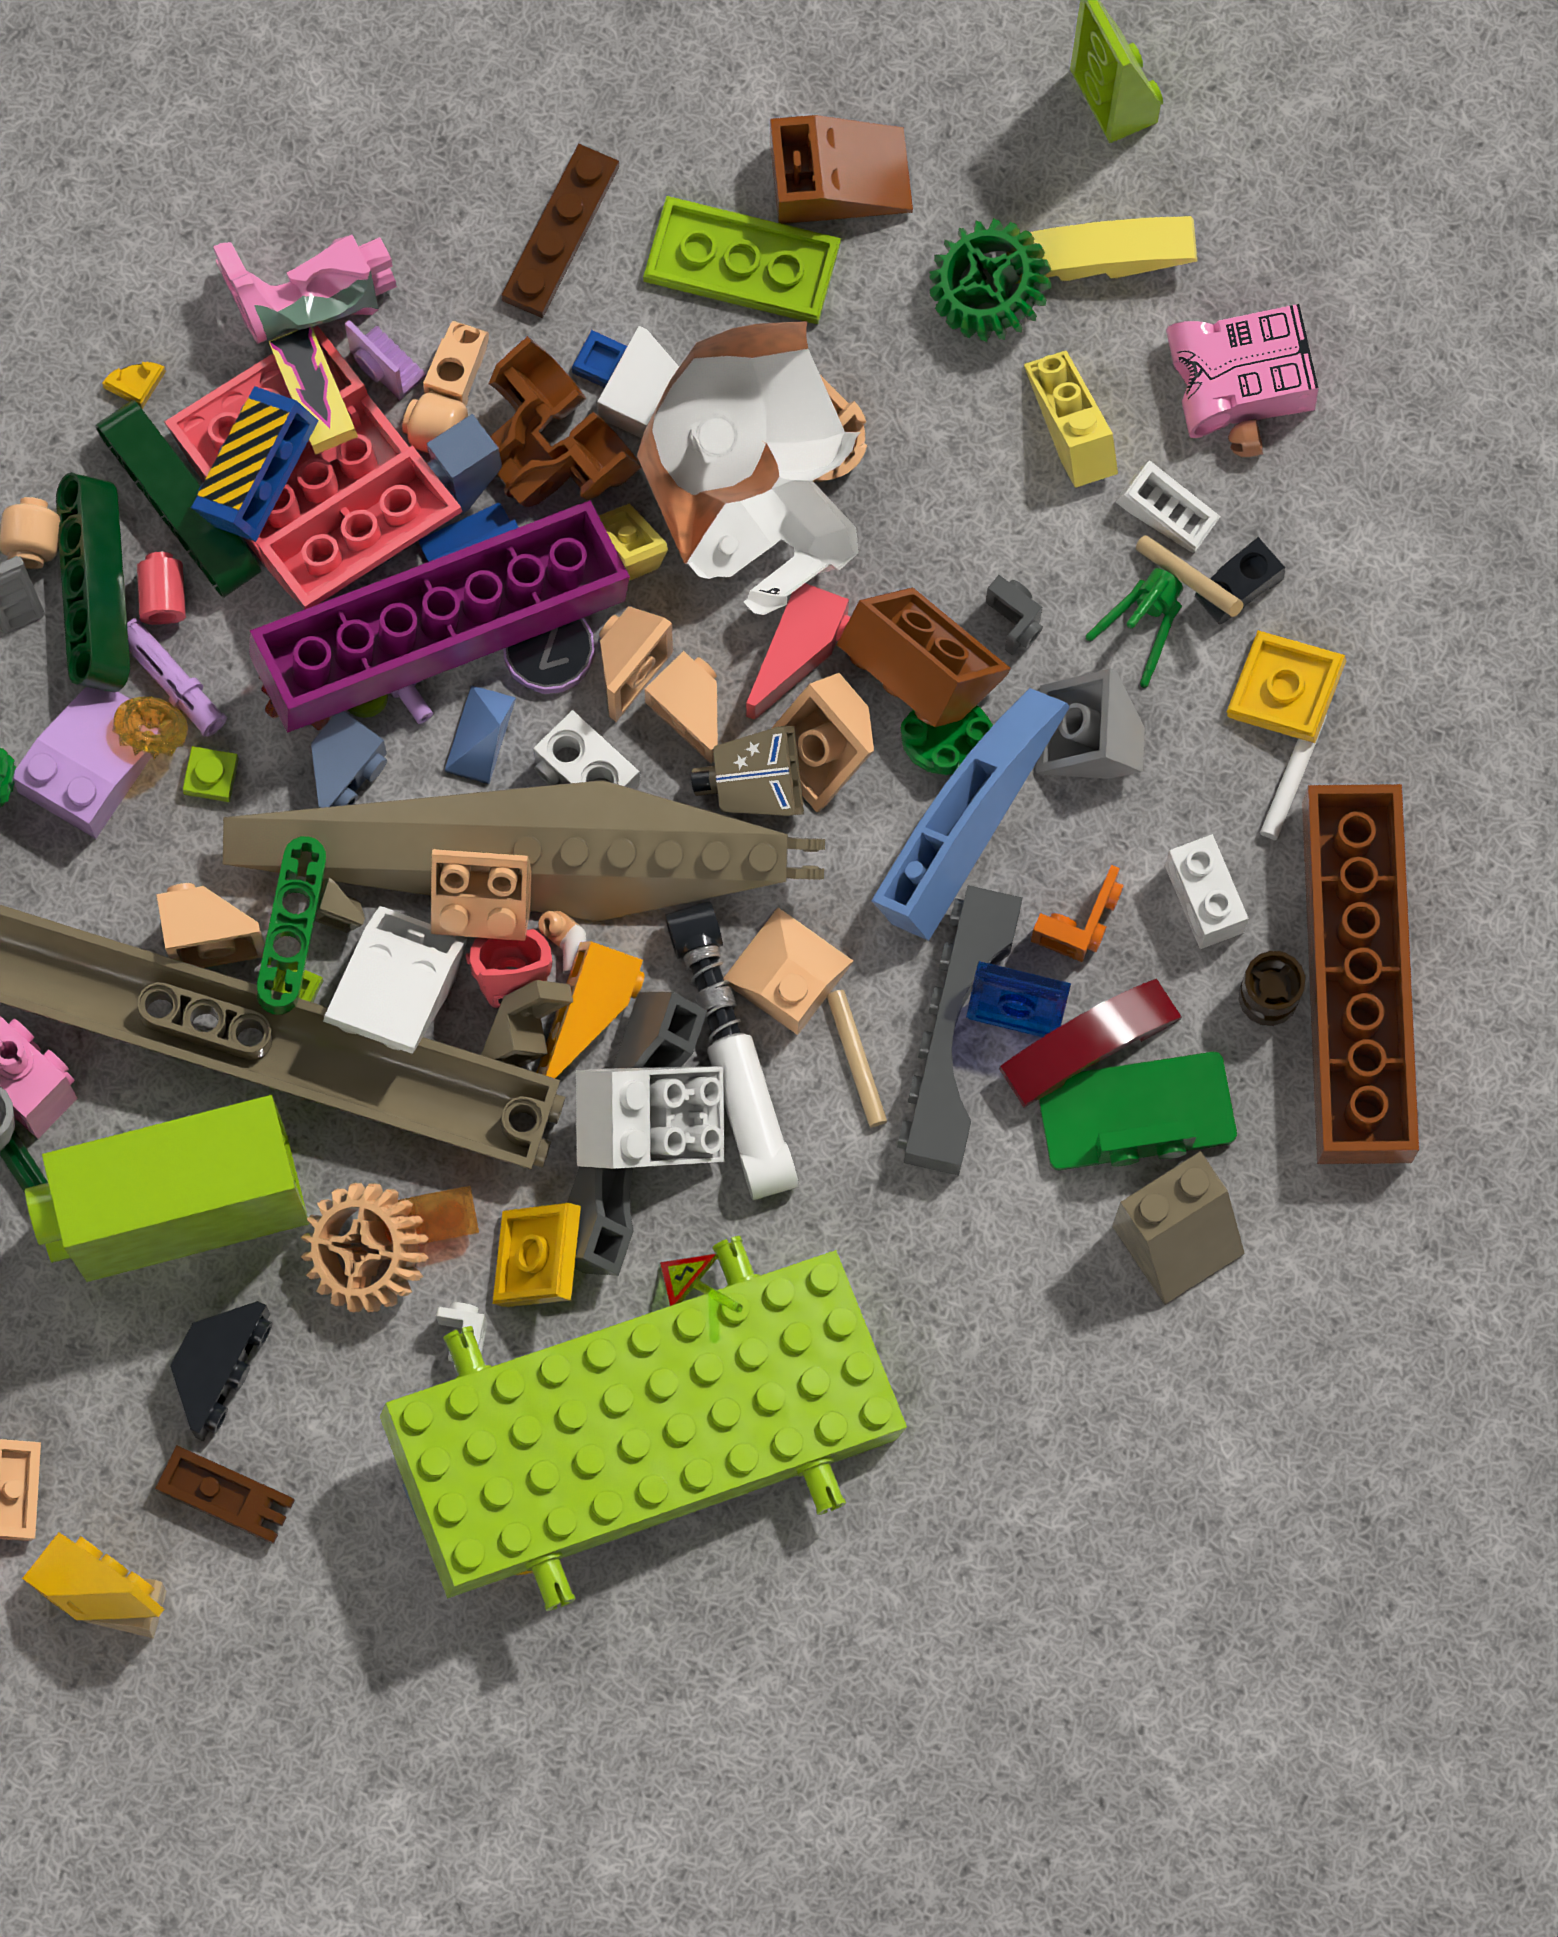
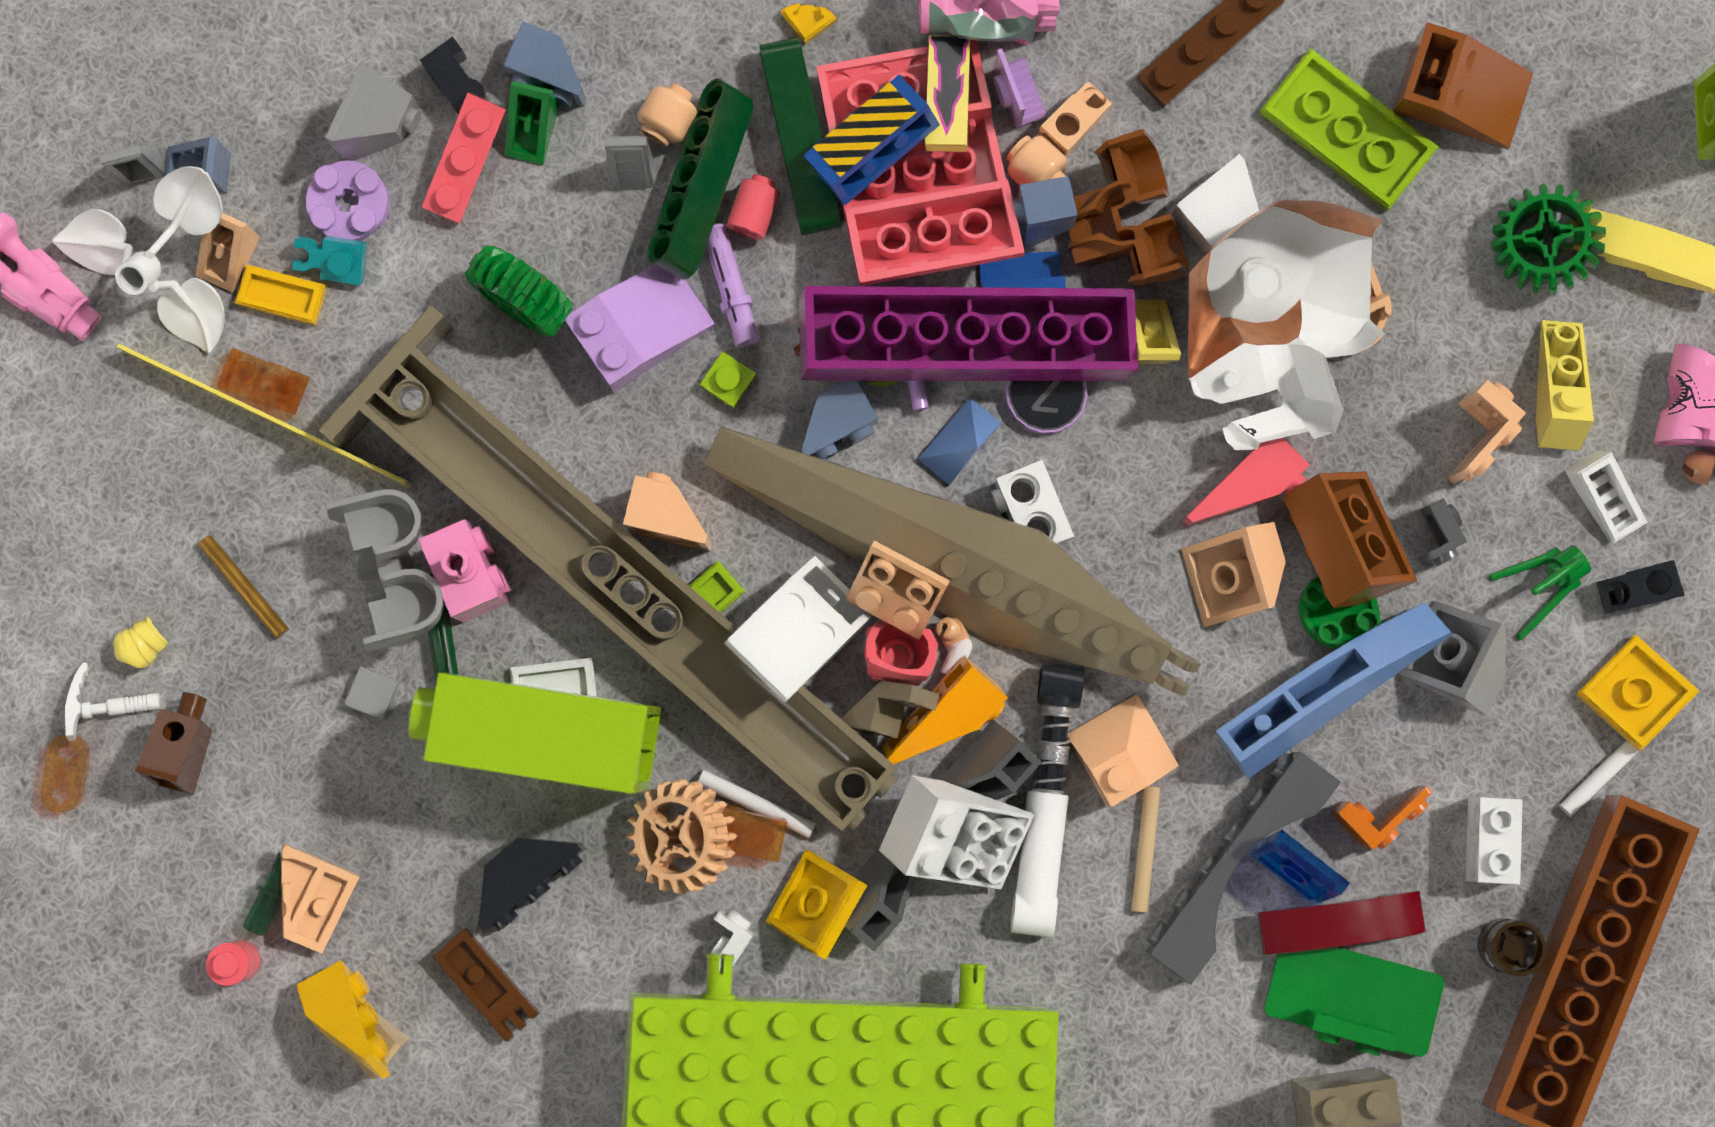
camera: 25 degrees right, 10 degrees up
(151, 713) = (703, 311): clear yellow gear -> none
(294, 925) = (739, 548): green beam -> none
(338, 909) = (780, 538): dark tan slope -> none
(415, 1187) = (755, 803): none -> white piece
(598, 358) = (1194, 165): blue tile -> none
(632, 654) = (1110, 430): light nougat slope -> none
(685, 1274) = (926, 975): piece -> none
(687, 701) = (1140, 492): light nougat slope -> none
(754, 774) = (1167, 580): dark tan torso -> none
(1011, 468) = (1494, 409): none -> light nougat bracket
(1189, 576) = (1601, 567): tan bar -> none

